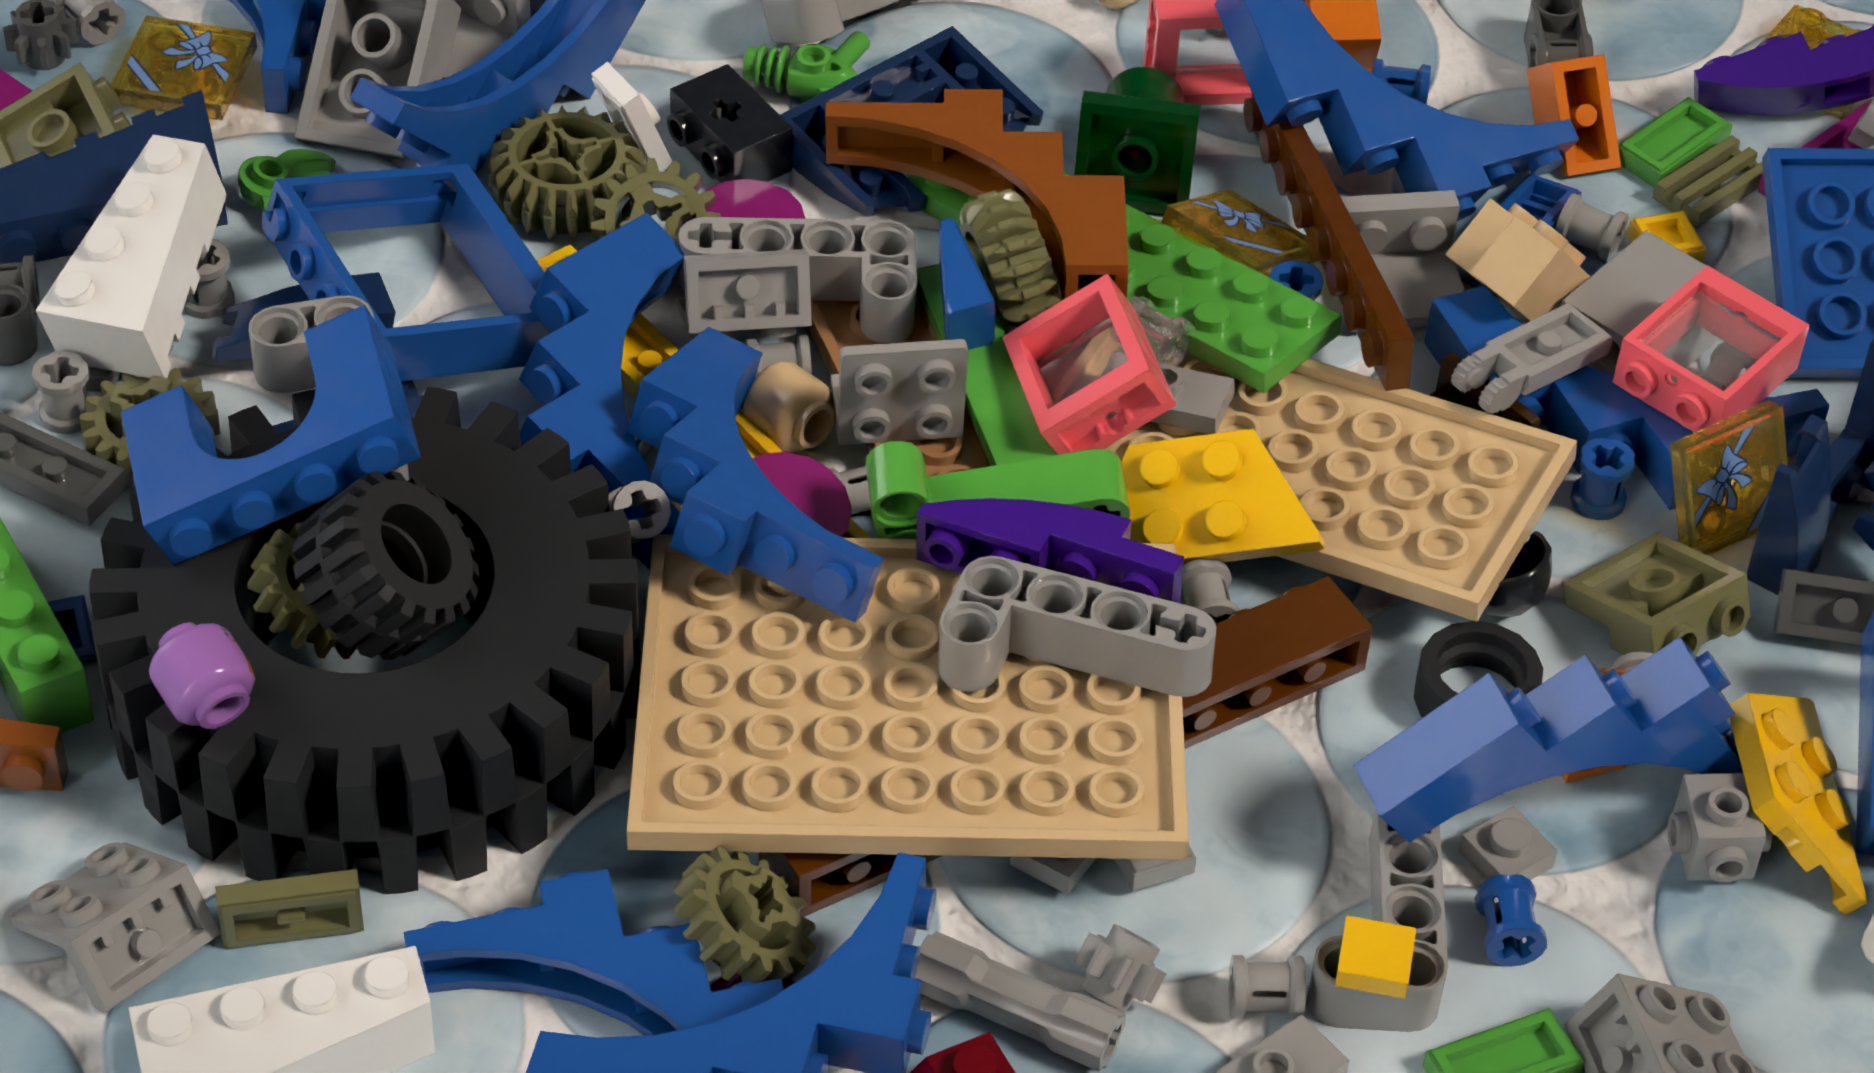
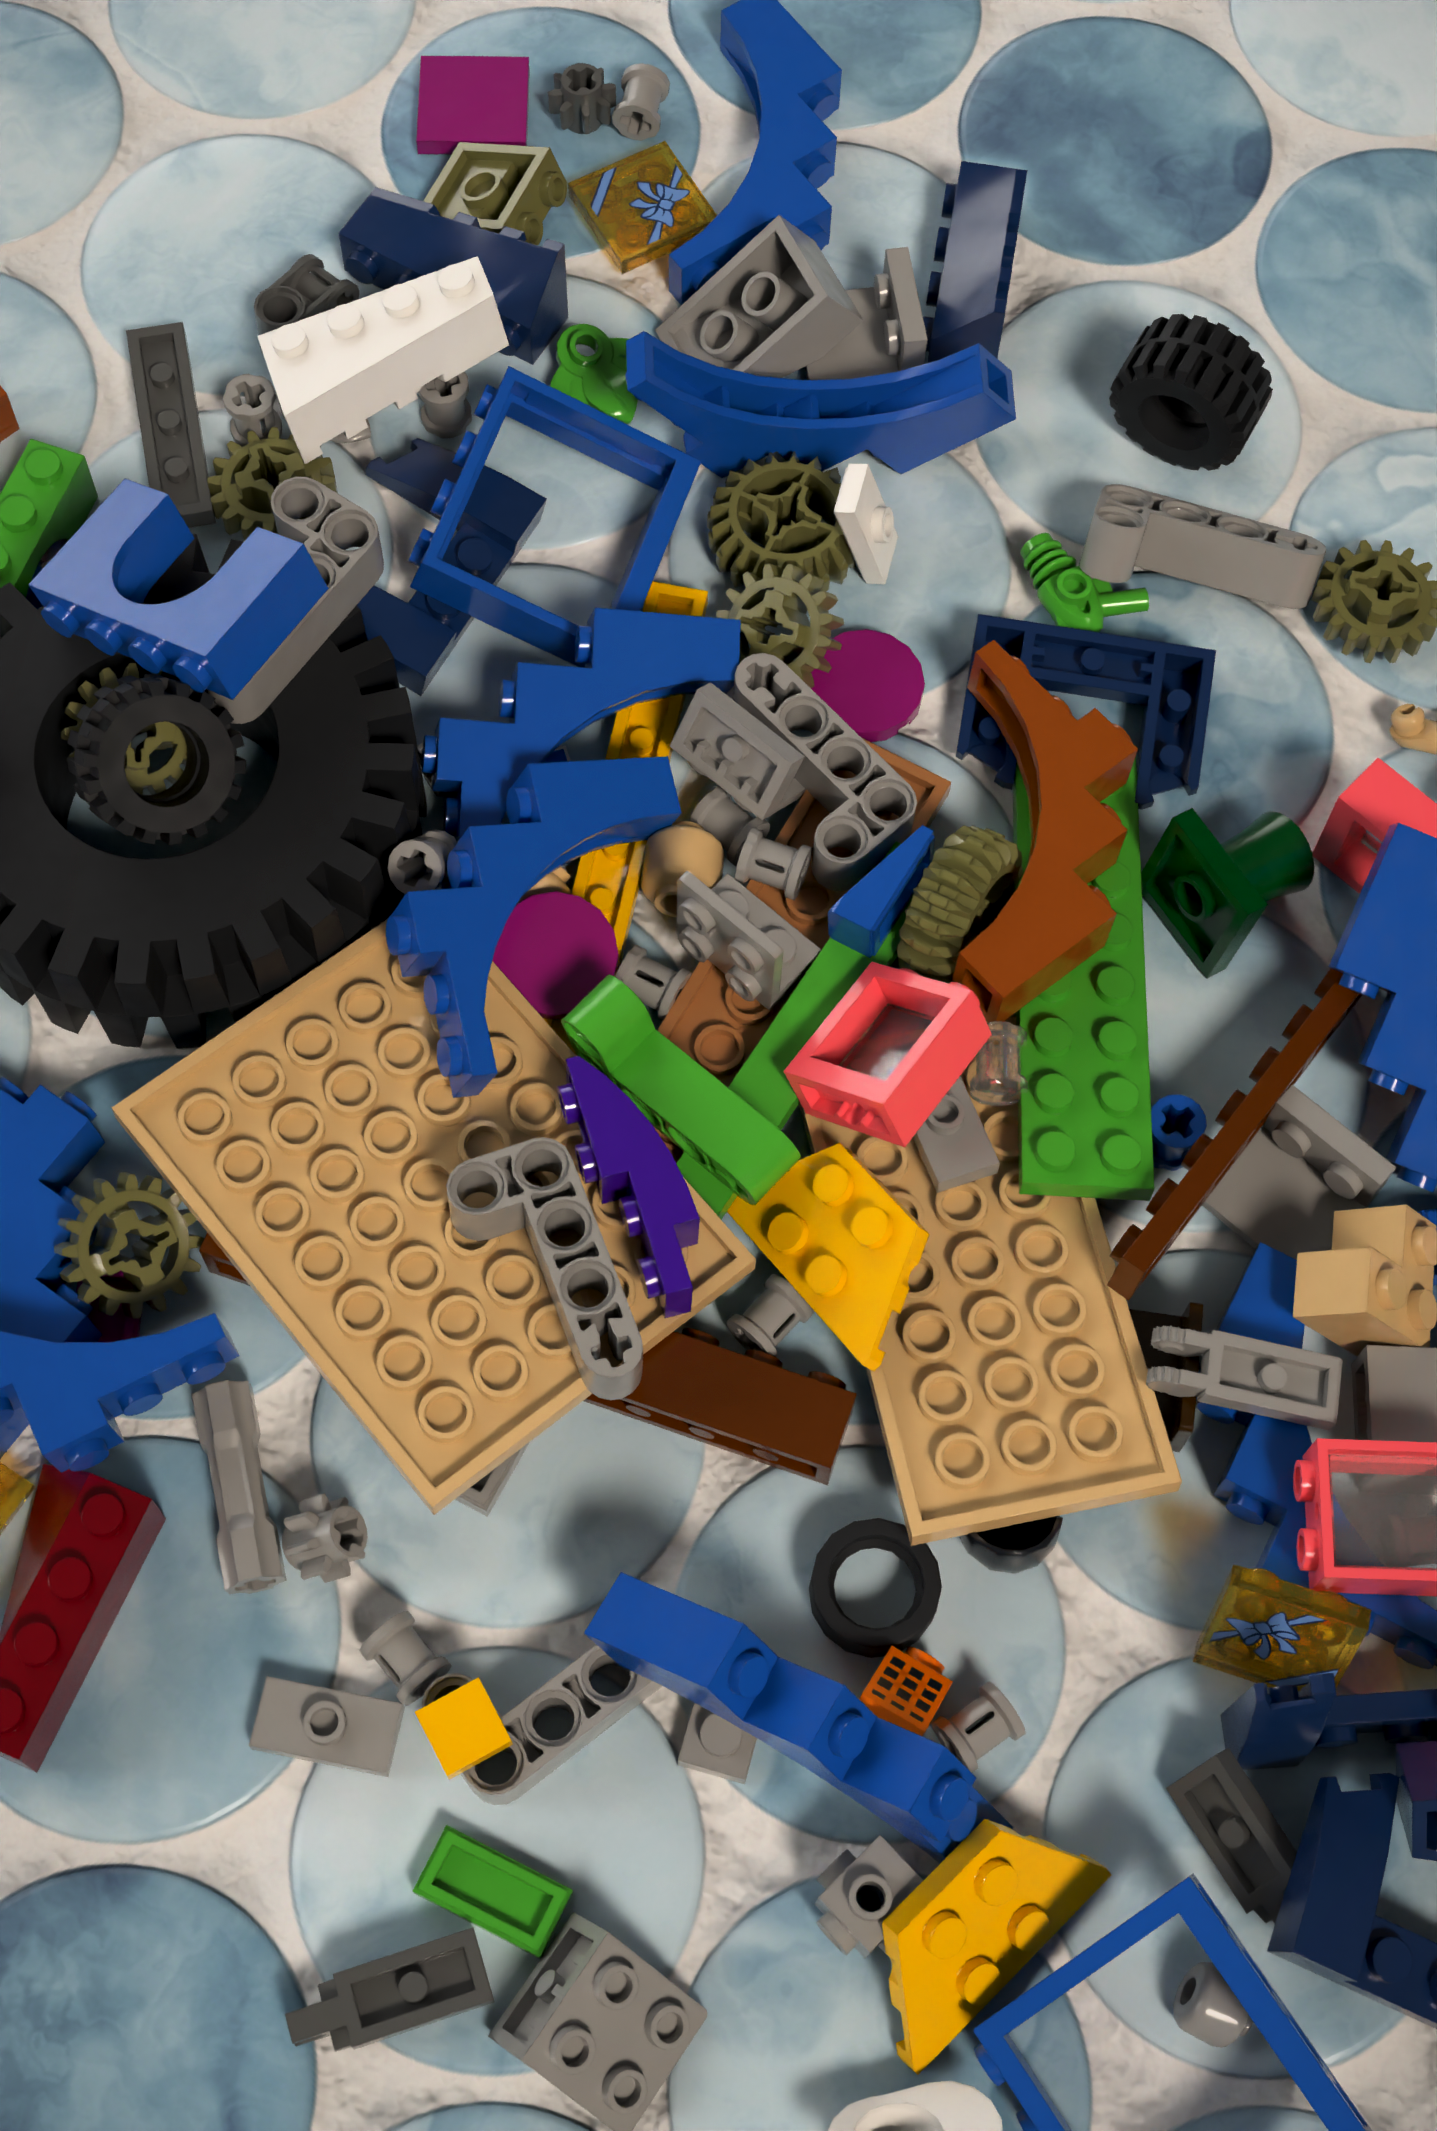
camera: 50 degrees right, 20 degrees up
(730, 127) = (944, 593): black brick -> none
(868, 330) = (753, 865): none -> light grey bush
(1237, 230) = (1198, 1035): clear yellow tile -> none
(1510, 920) = (635, 1795): blue bush -> none
(1604, 469) = (1220, 1514): blue bush -> none
(1661, 594) = (1101, 1670): olive plate -> none

